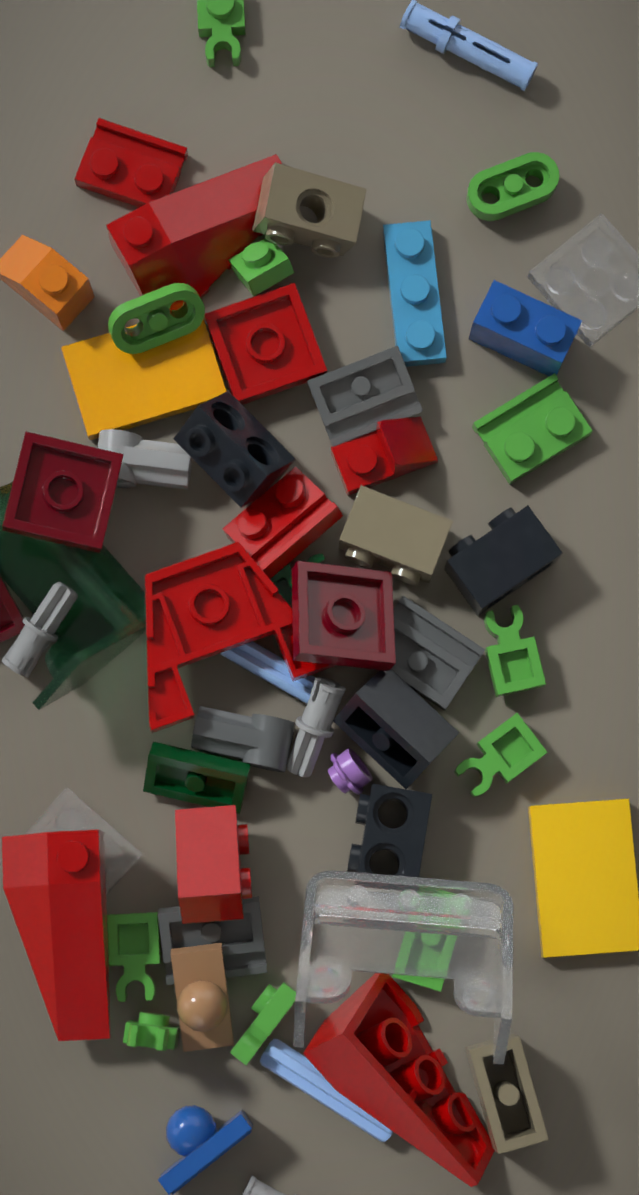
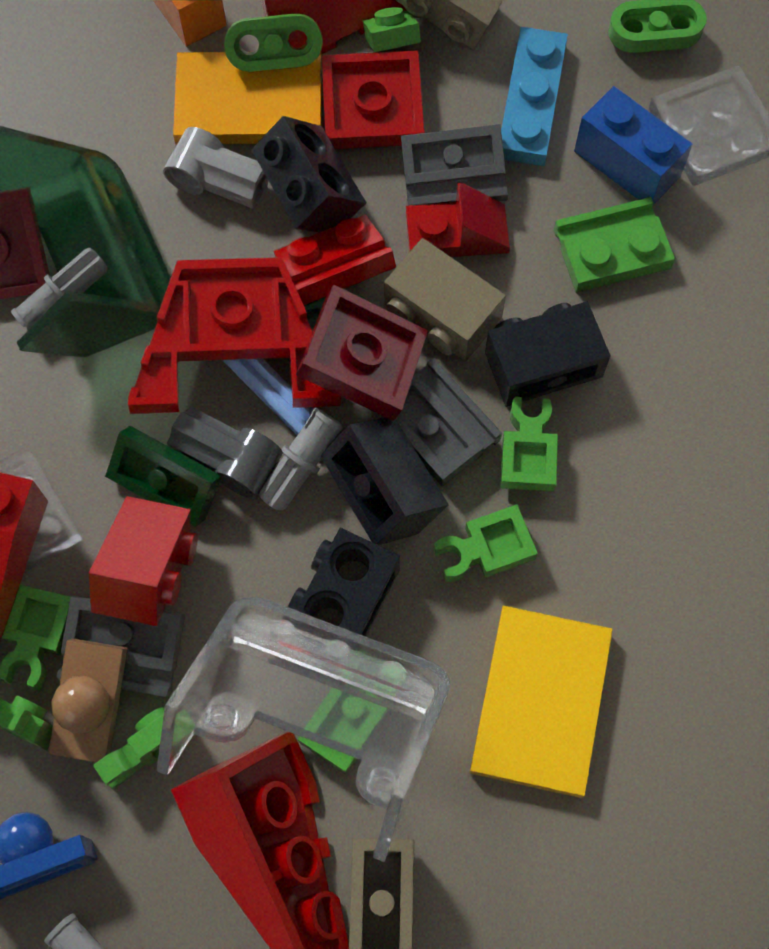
camera: 20 degrees right, 10 degrees down
(62, 492) = (122, 160): dark red plate -> none
(303, 1075) = (163, 814): light blue axle -> none
(349, 772) = (322, 516): medium lavender plate -> none

